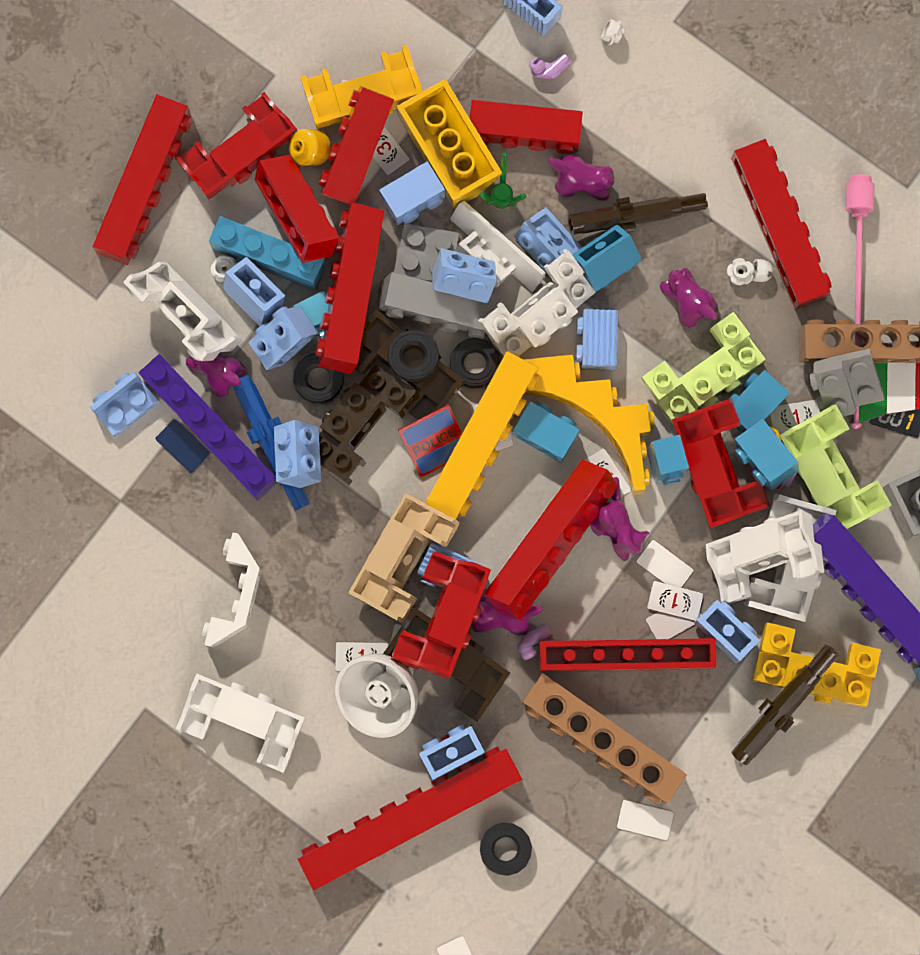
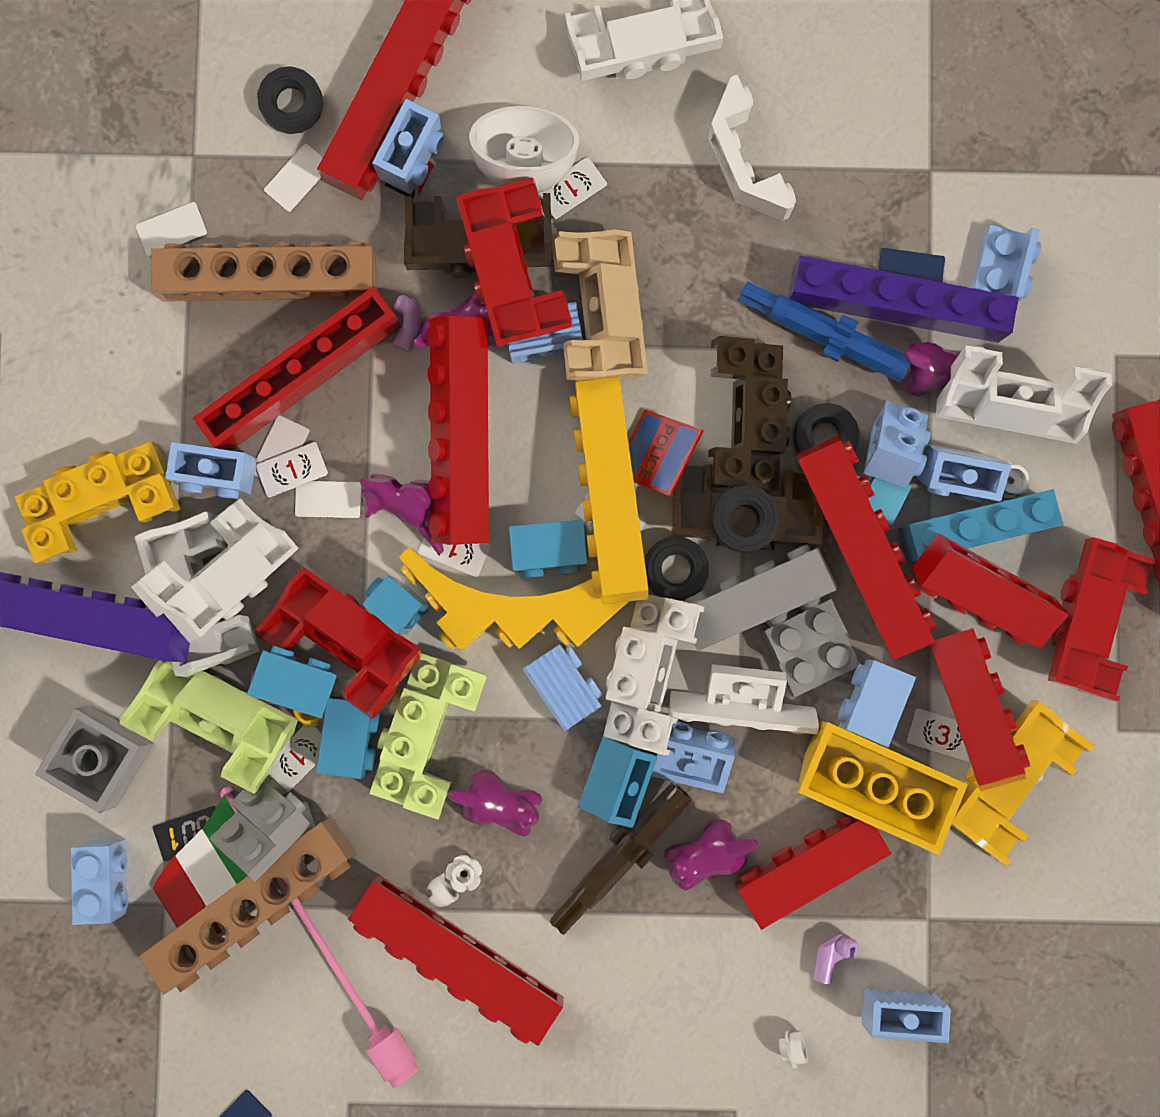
camera: 145 degrees right, 5 degrees up
(297, 454) = (789, 330): light blue brick -> none
(309, 147) = (1024, 673): yellow head -> none
(464, 275) = (755, 645): light blue brick -> none
(502, 193) = (782, 773): green plant -> none
(537, 795) = (295, 178): none -> white sticker
(777, 714) = (98, 421): dark brown piece -> none

